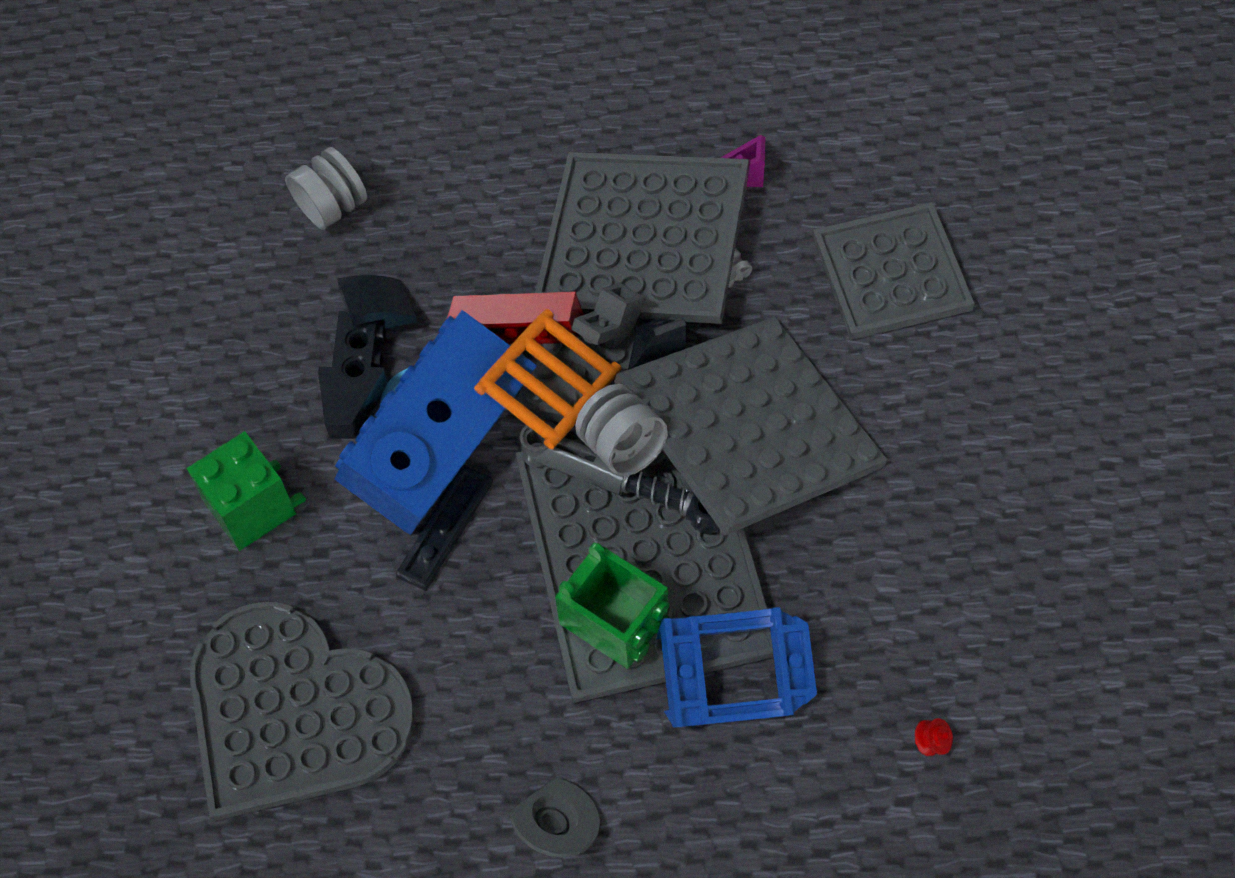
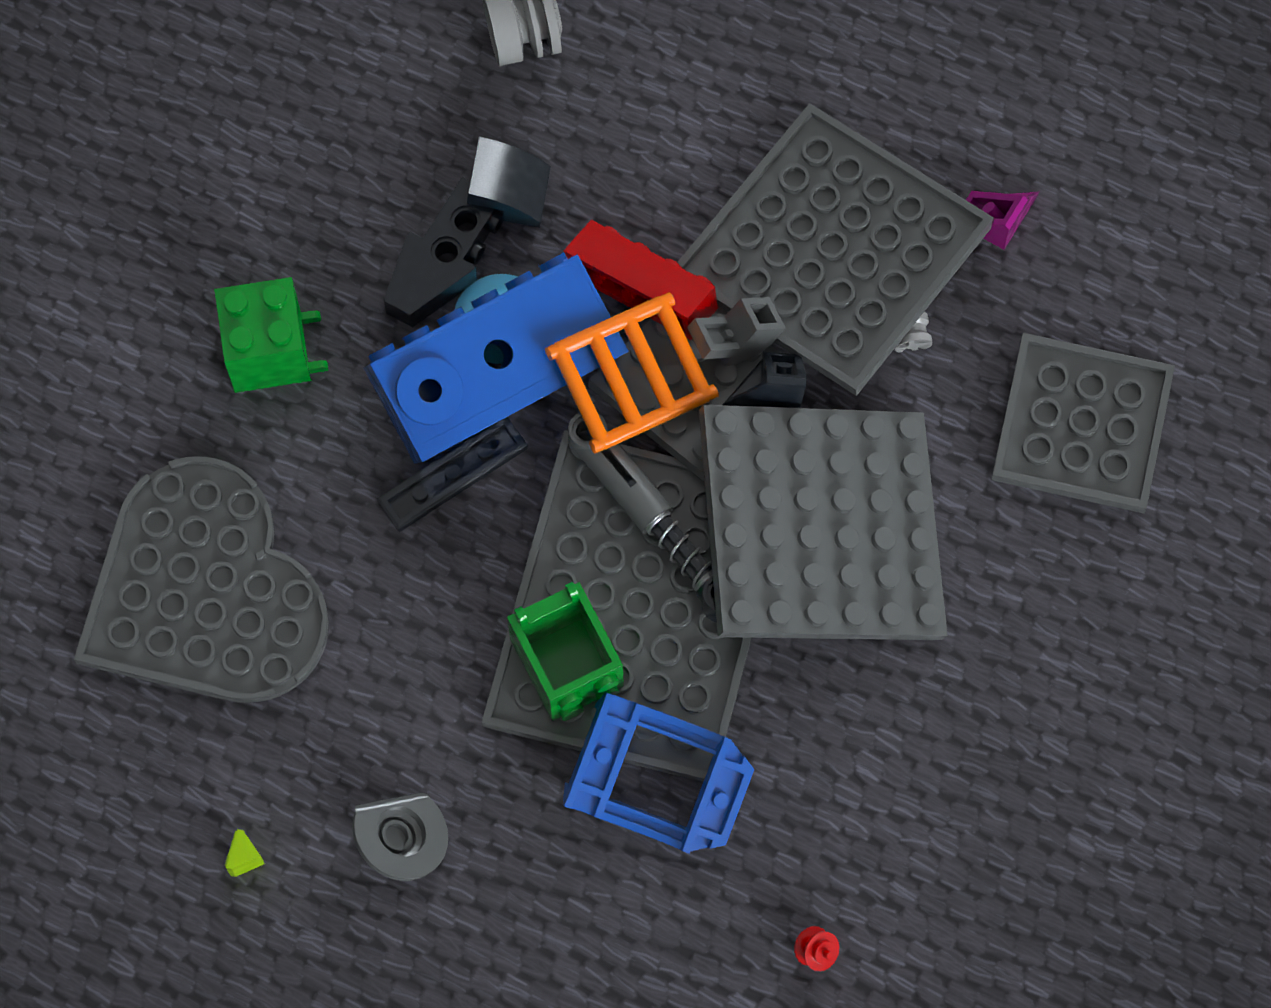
camera: 25 degrees right, 10 degrees up
(621, 429) = (671, 471): light grey wheel -> none

